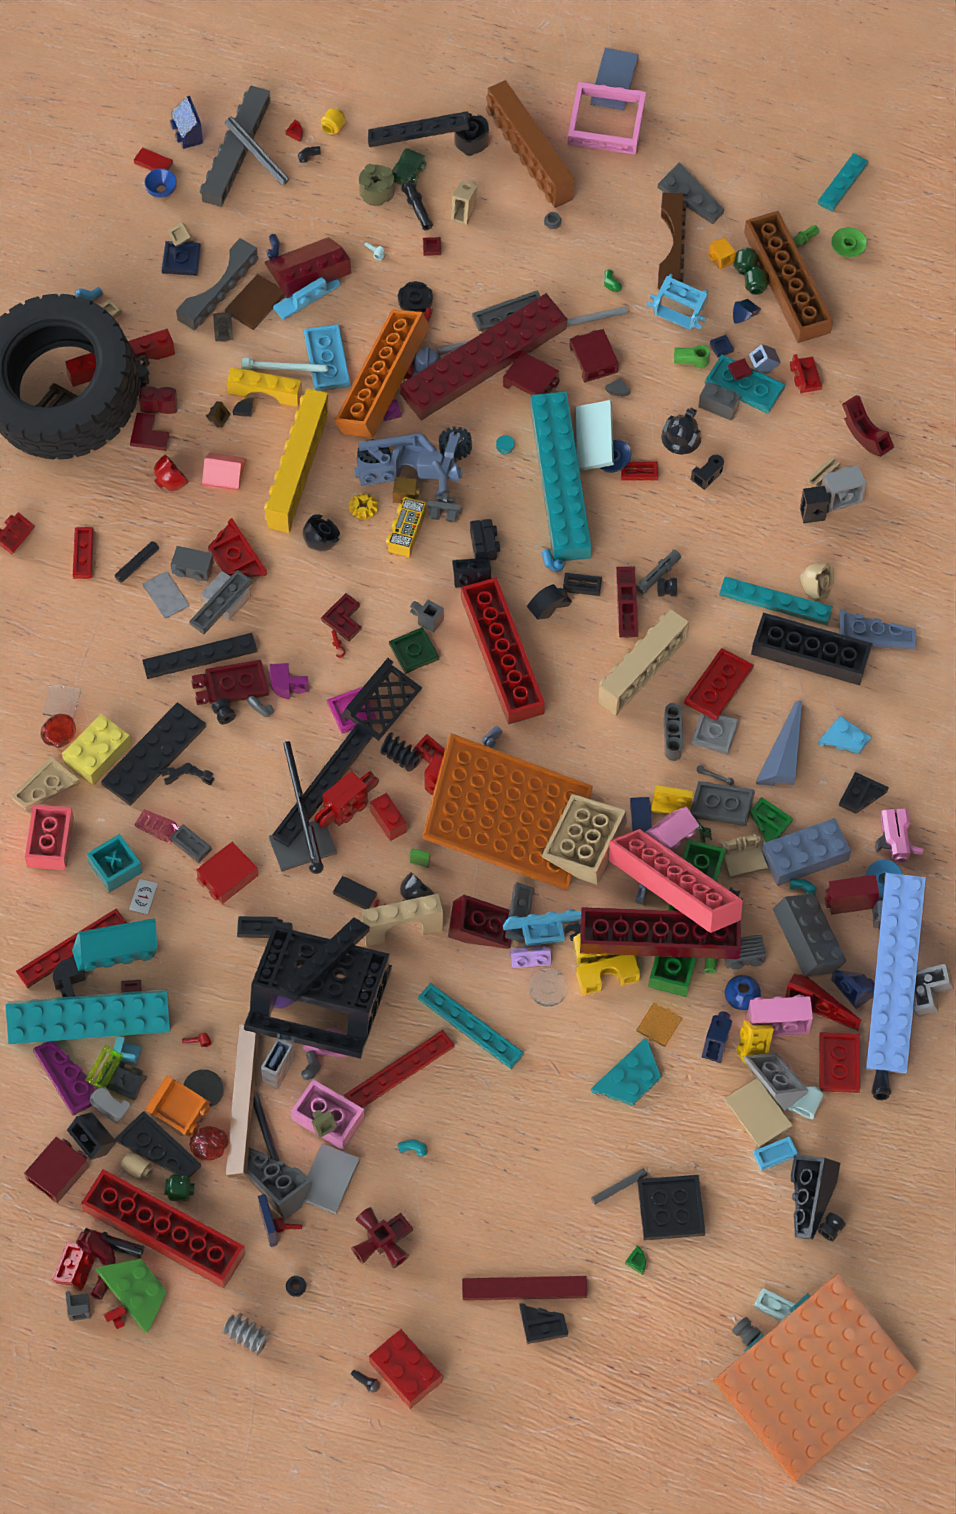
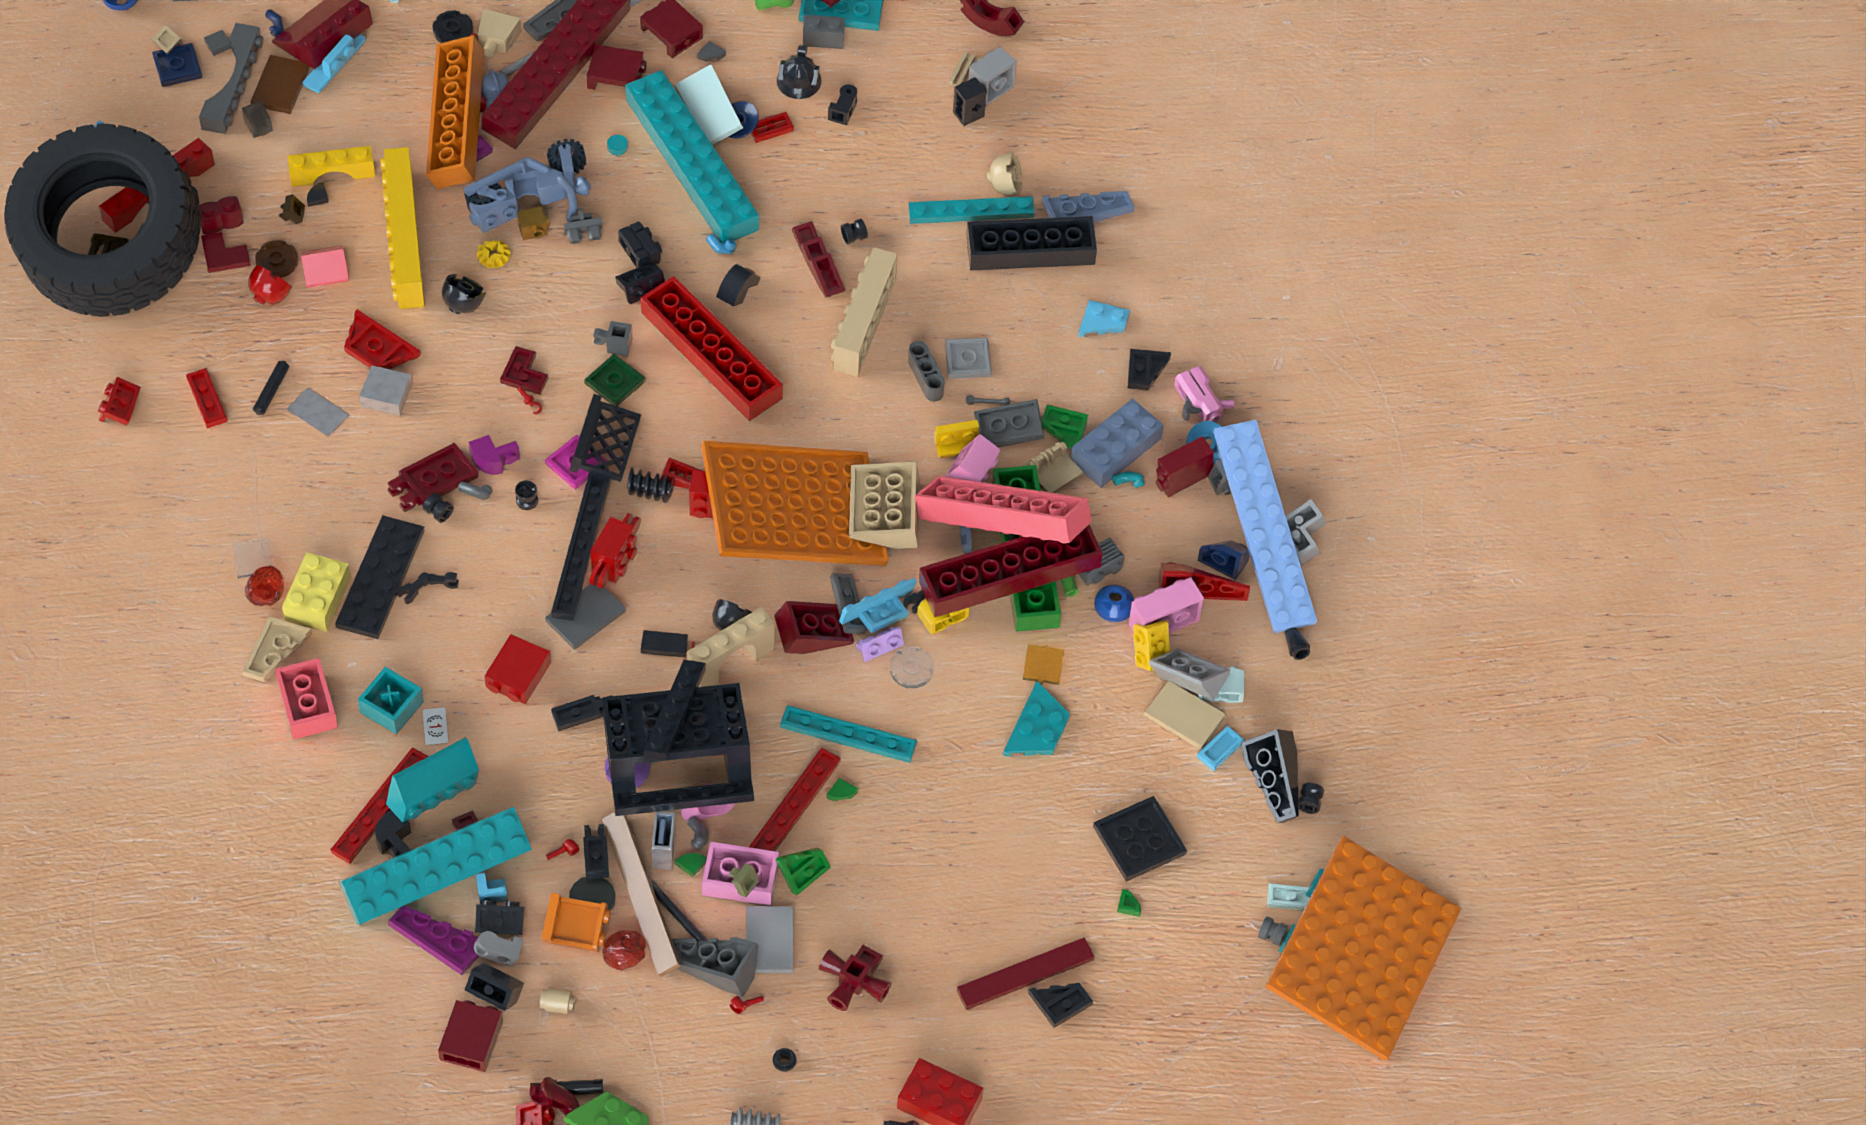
camera: 25 degrees left, 5 degrees down
(113, 1052) = (477, 910): clear neon green tile -> none
(155, 1144) = (567, 971): black wing -> none
(163, 1228) = (616, 1051): red brick -> none
(169, 826) = (432, 648): clear pink slope -> none
(179, 1188) = (614, 1005): dark green head -> none
(188, 452) = (277, 258): none -> reddish brown tile
(190, 843) = (463, 653): dark grey plate -> none
(192, 563) = (335, 369): dark grey brick -> none
(199, 655) = (384, 461): black plate -> none
(220, 602) = (385, 396): dark grey tile -> none
(220, 1053) = (595, 853): none -> black hinge
(221, 249) = (217, 42): none -> dark grey tile
(248, 364) = (307, 148): light aqua piece -> none
(267, 1220) = (726, 1001): dark blue tile -> none
(293, 1089) = (691, 863): none -> green tile
(295, 722) = (526, 495): none -> black wheel
(317, 865) = (615, 625): black bar -> none
(326, 348) = (384, 116): medium azure tile -> none
(380, 1128) = (802, 868): none -> green wing
(388, 816) = (666, 554): red brick -> none
(406, 527) = (550, 259): brick -> none
(413, 1144) = (842, 873): teal arm -> none
(420, 857) = (718, 584): bright green tile -> none
(443, 1073) = (841, 790): none -> green tile
(448, 313) = (497, 32): none -> tan torso
(489, 739) = (739, 434): sand blue arm -> none
(582, 587) = (764, 260): black tile -> none
(619, 1186) = (1075, 839): dark grey bar -> none
(621, 966) = (980, 619): yellow arch -> none
(640, 813) = (928, 463): dark blue tile -> none
(664, 566) = (840, 212): dark grey pin -> none
(704, 832) = (1005, 459): clear green hand -> none
(718, 684) = (951, 309): red tile -> none
(718, 1032) = (1111, 644): dark blue torso -> none
(782, 760) = (1050, 358): sand blue wedge -> none
(809, 935) = (1159, 521): dark grey brick -> none
(839, 1062) = (1244, 636): red plate -> none

